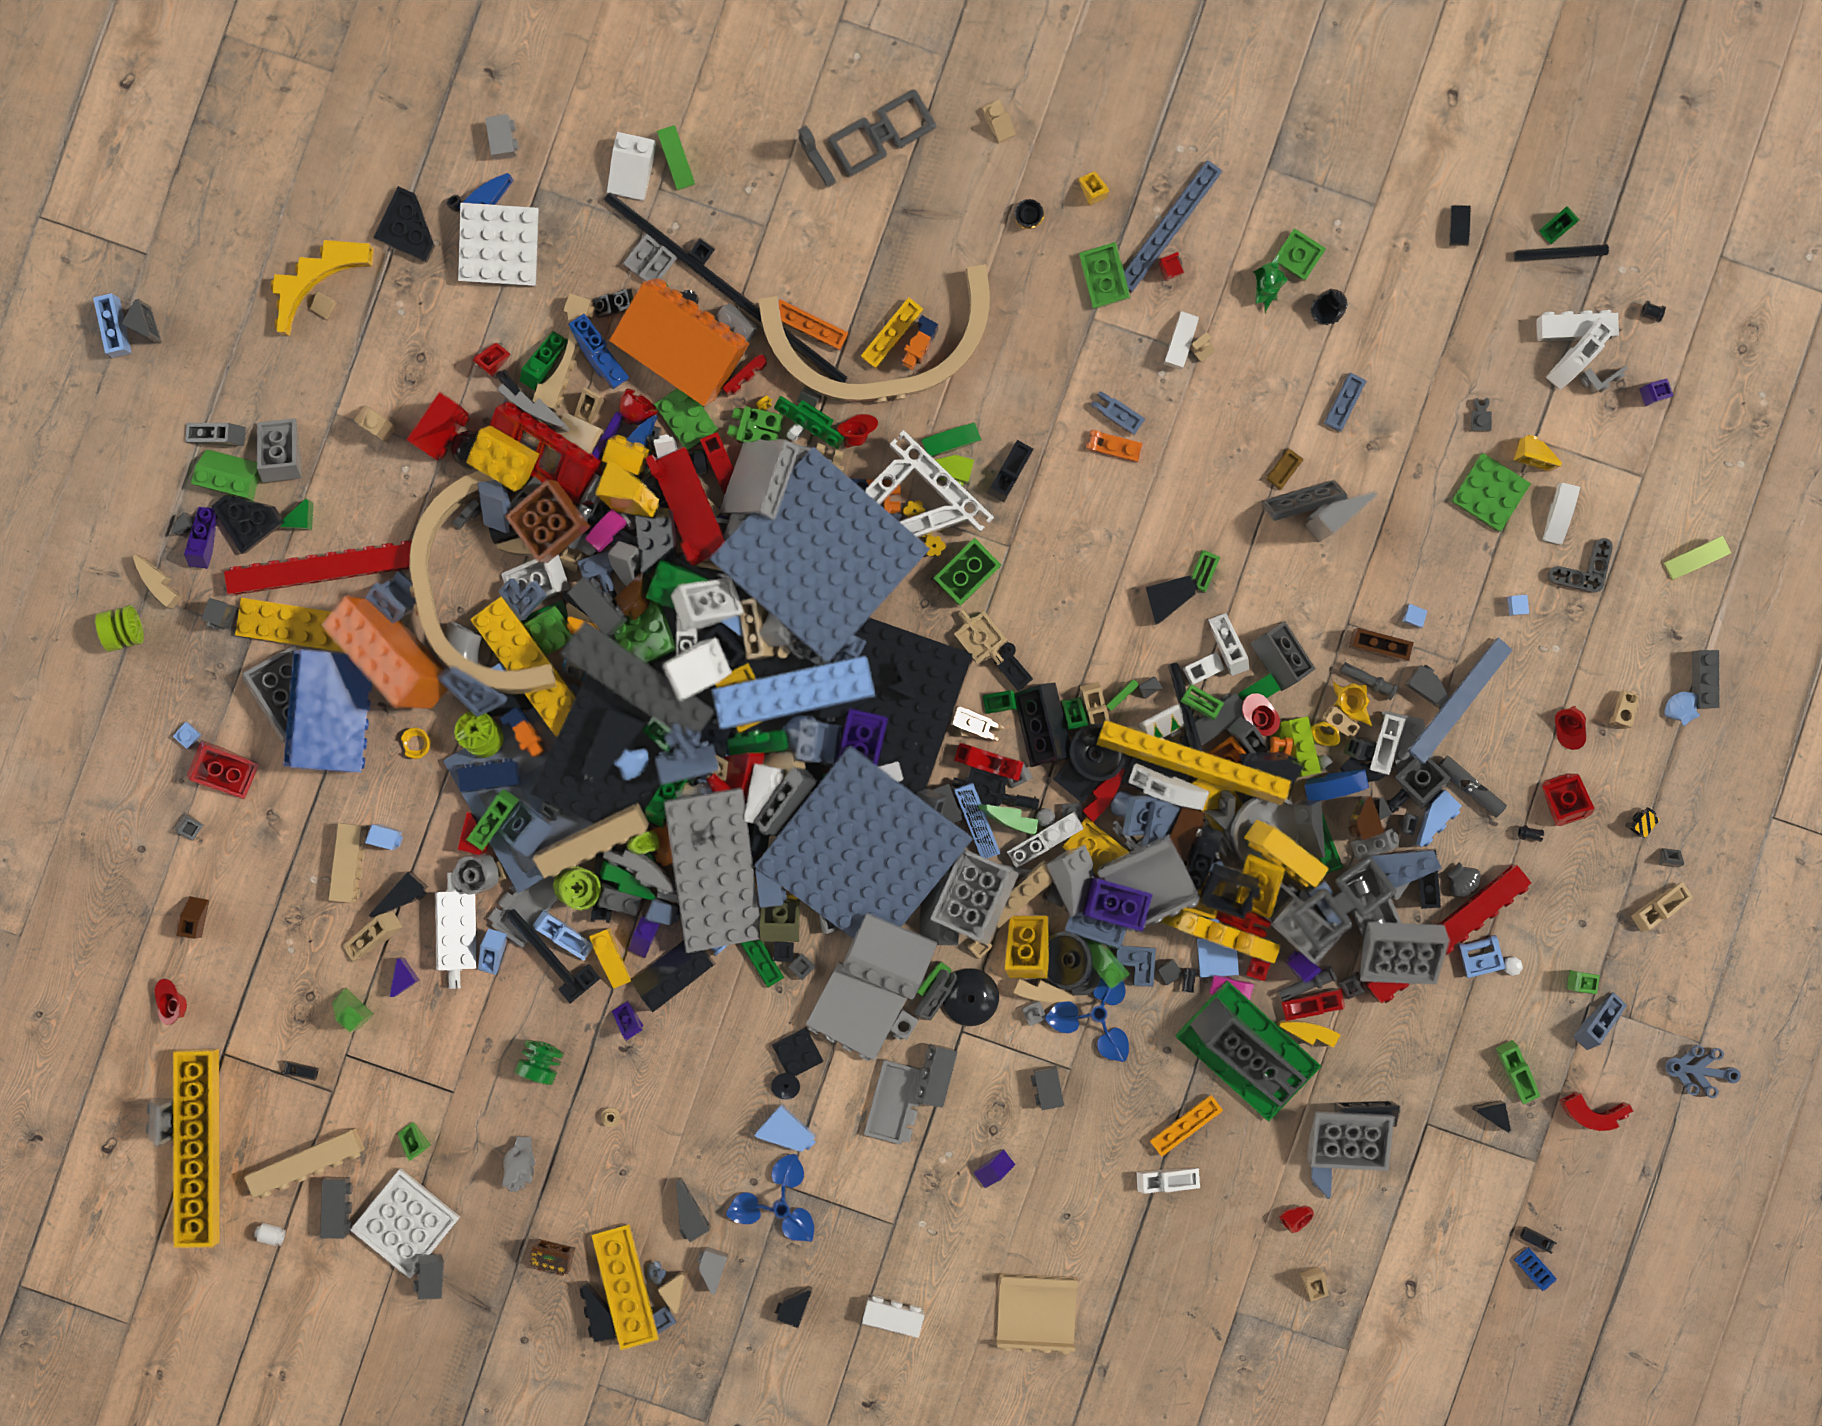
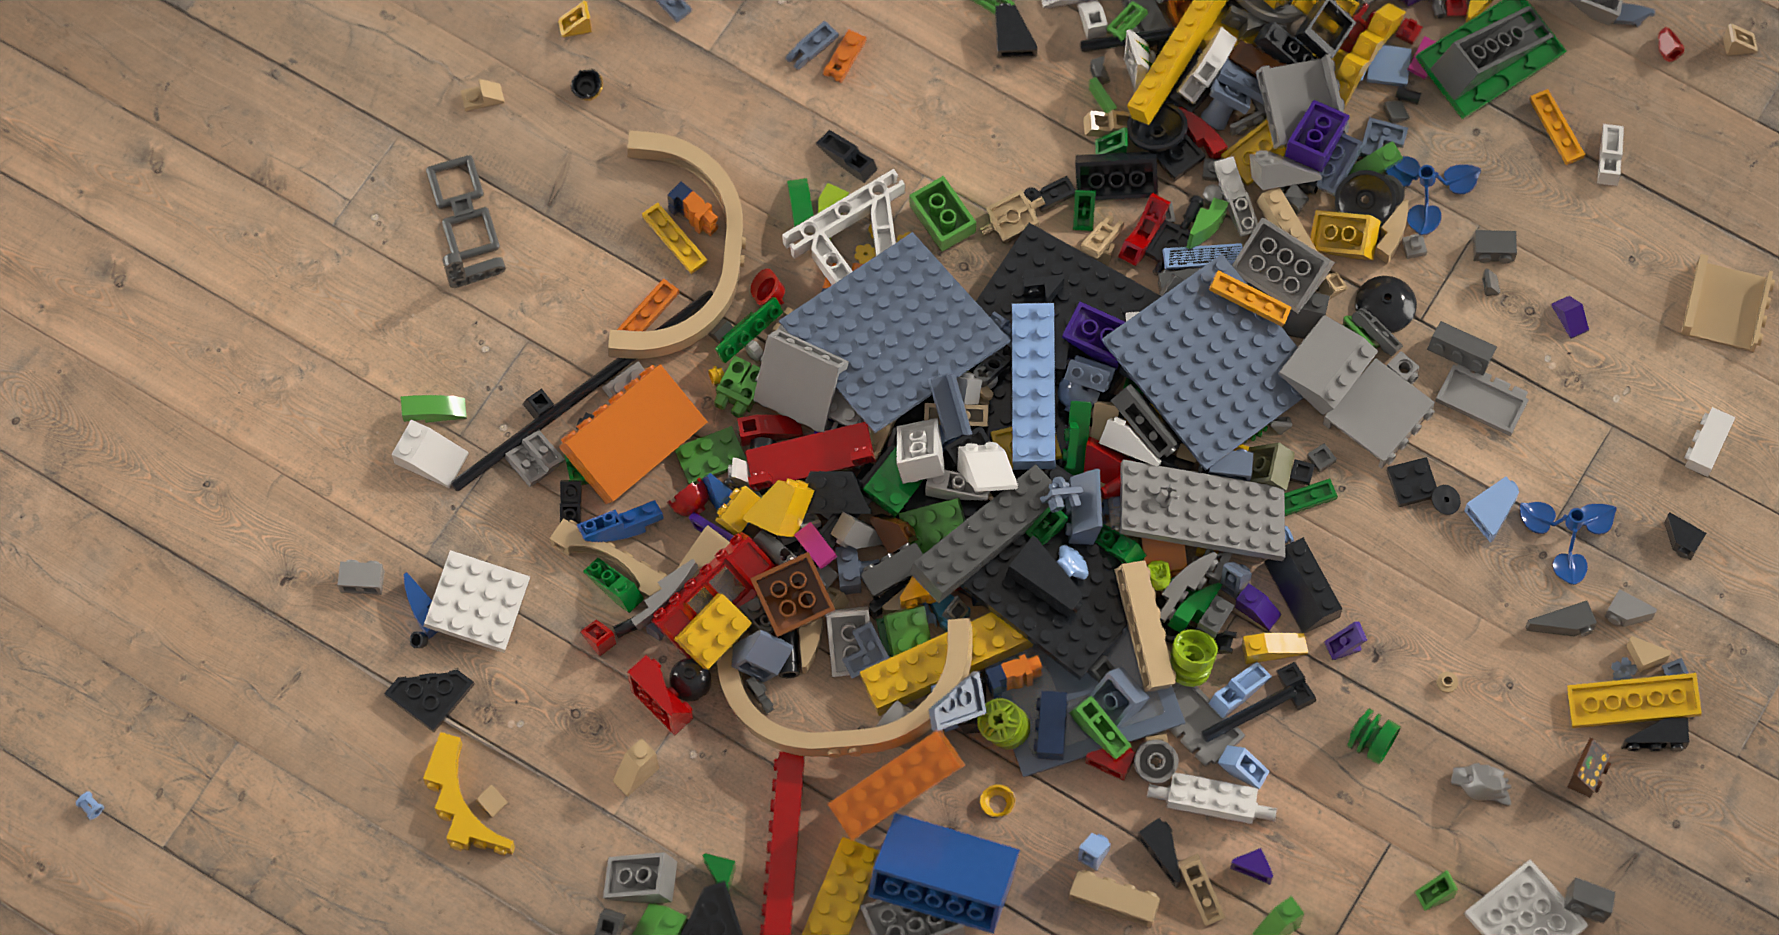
camera: 70 degrees left, 20 degrees down
(393, 597) = (833, 778): sand blue panel -> none
(588, 406) = (672, 545): tan slope -> none
(745, 374) = (673, 370): red hinge -> none
(751, 620) = (949, 405): none -> sand blue panel
(931, 873) = (1250, 298): none -> light orange plate
(1011, 1090) = (1490, 283): none -> dark grey slope
(1104, 275) = (669, 28): bright green plate -> none

